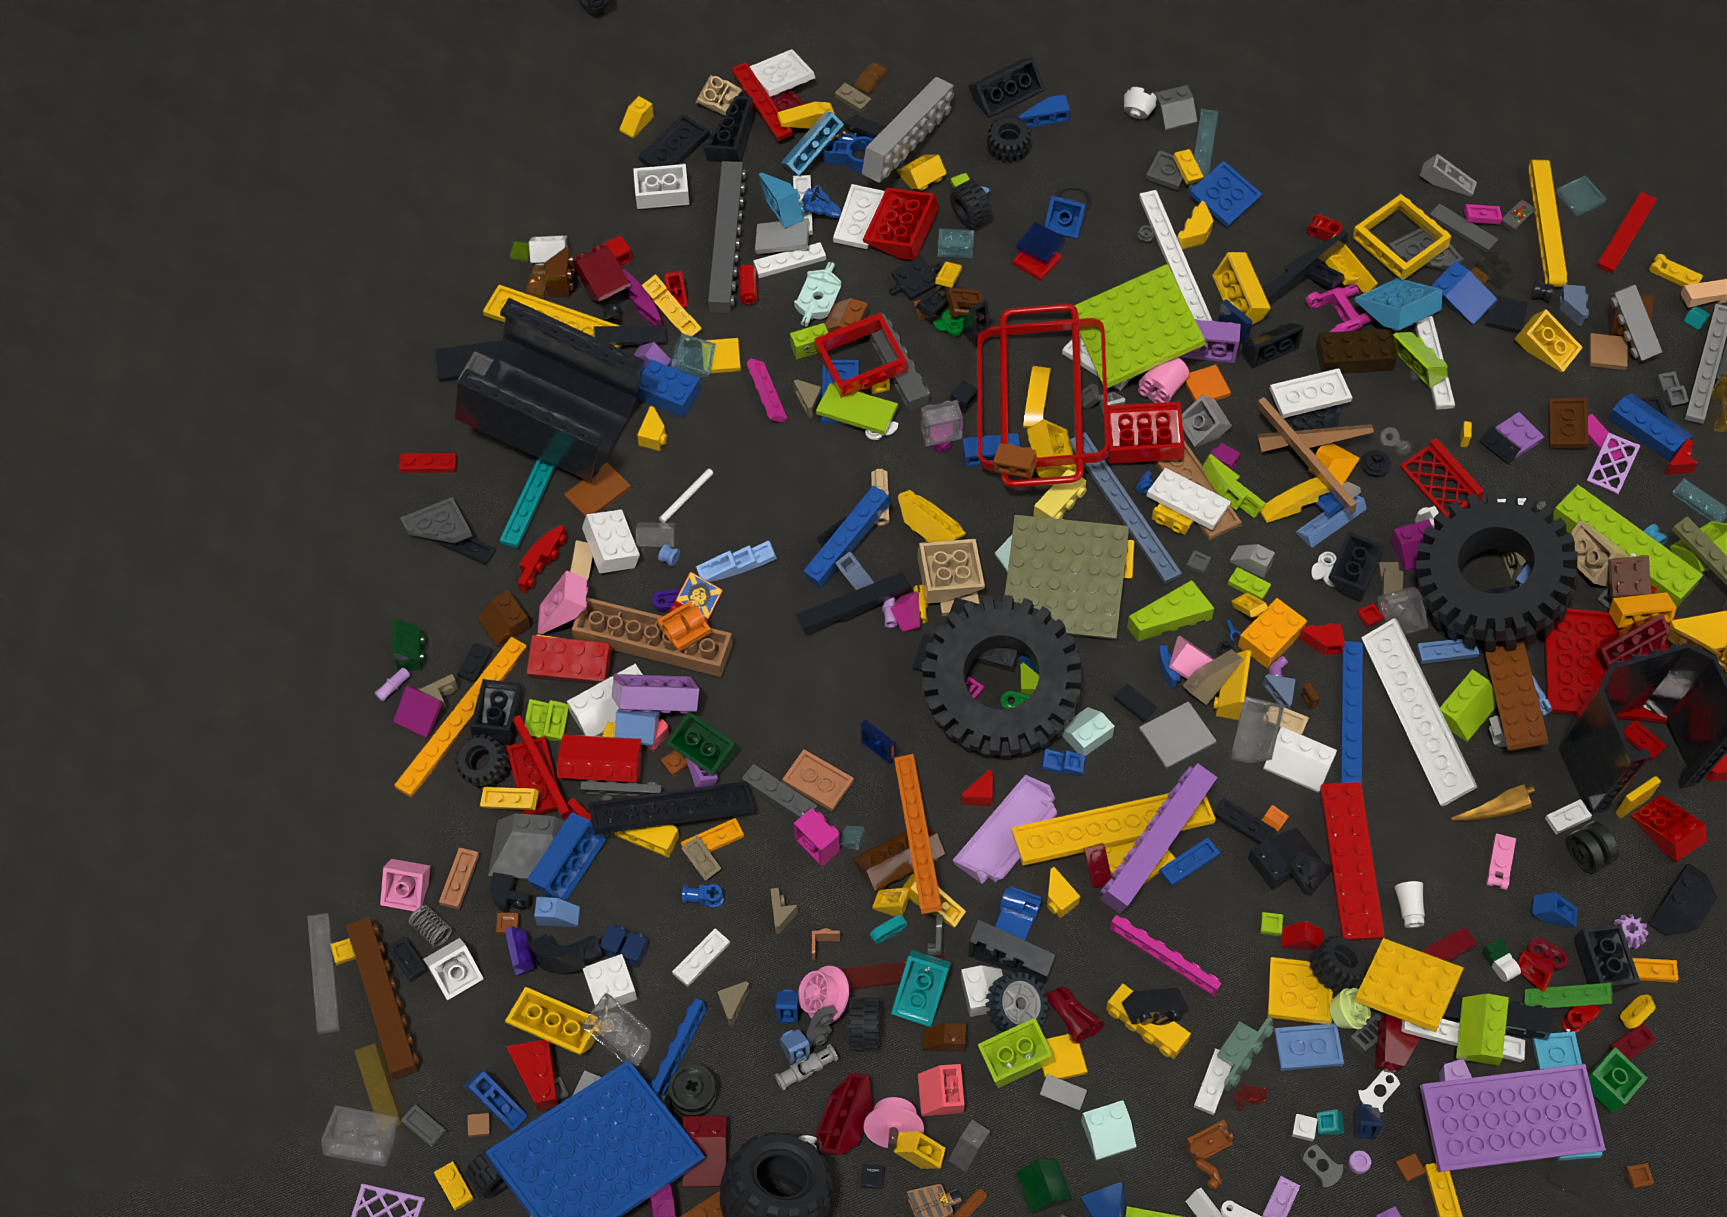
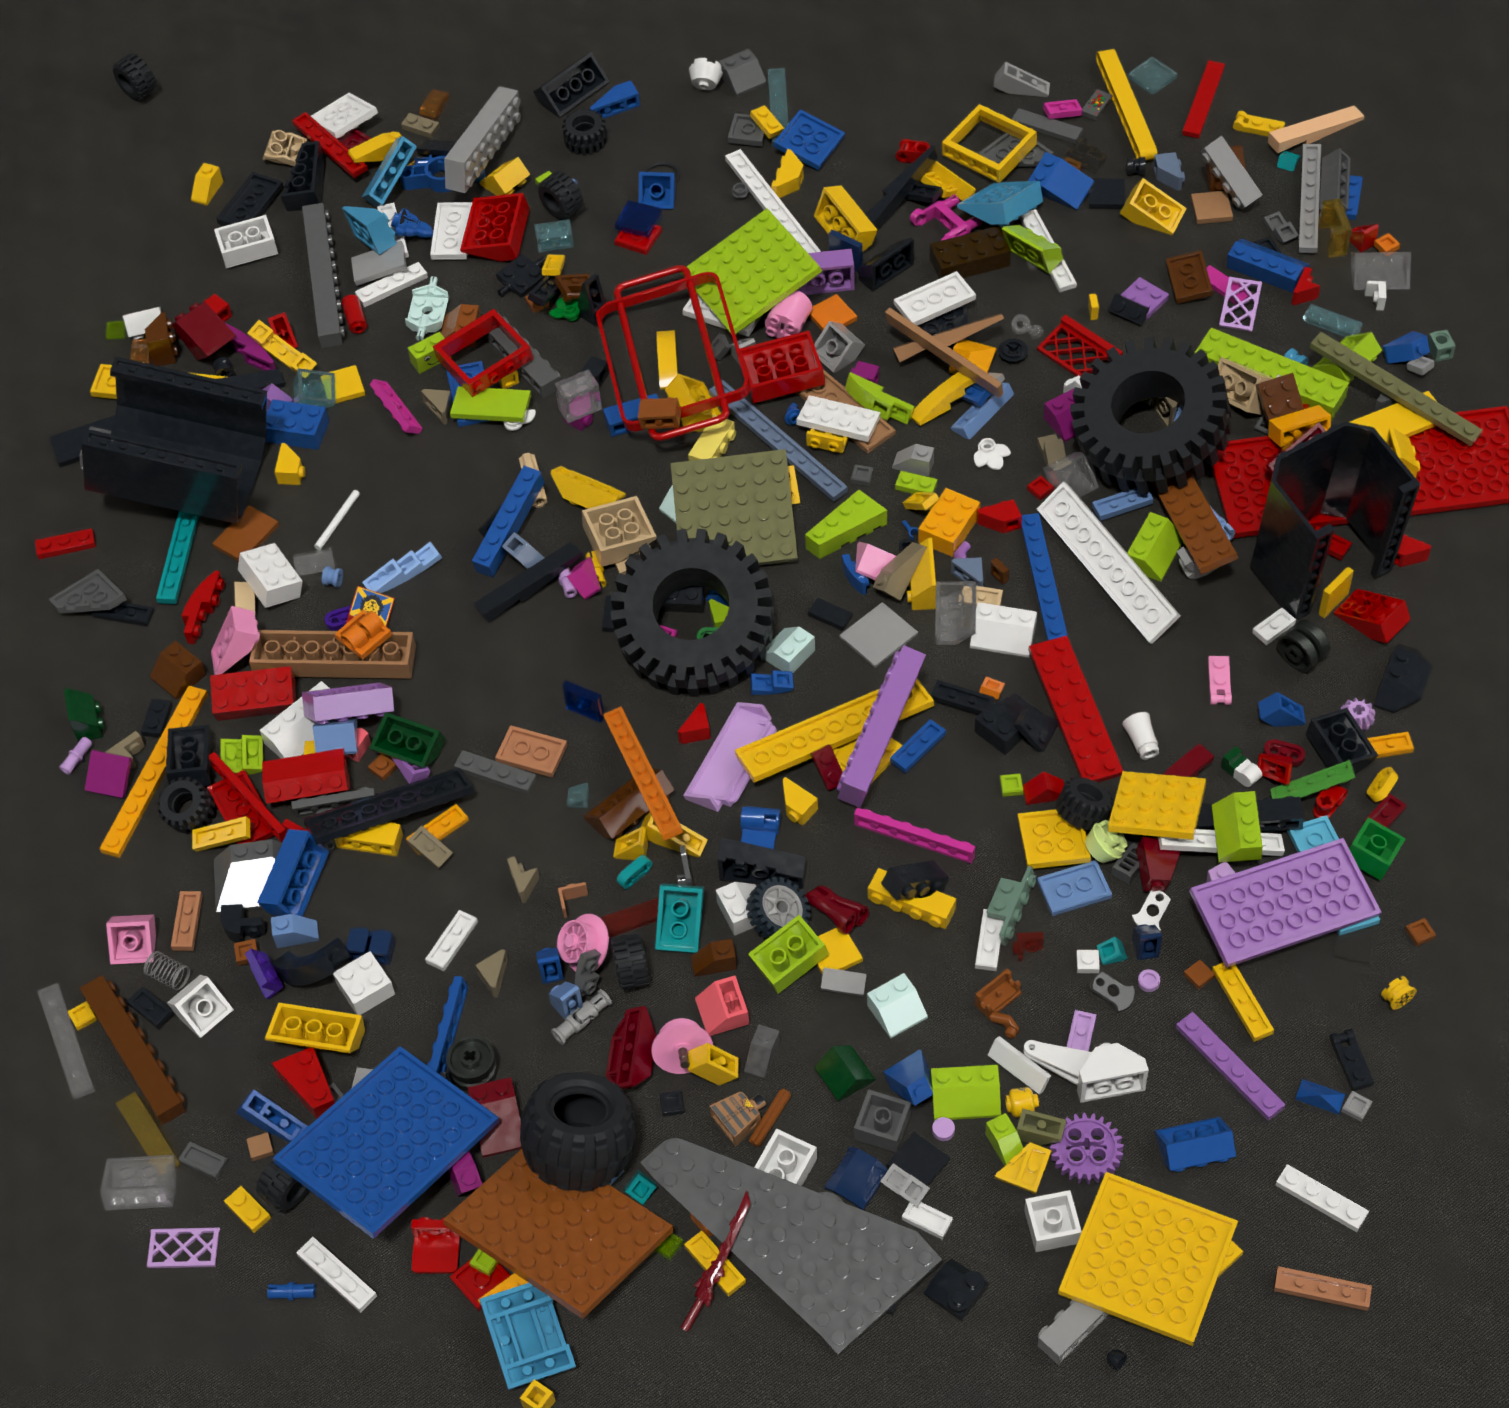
camera: 10 degrees left, 5 degrees down
(618, 1030) = (382, 1022): clear slope -> none
(703, 895) = (441, 881): blue connector -> none
(817, 836) = (542, 801): dark pink brick -> none
(1355, 565) = (1015, 444): black slope -> none
(1507, 803) = (1212, 626): pearl gold piece -> none

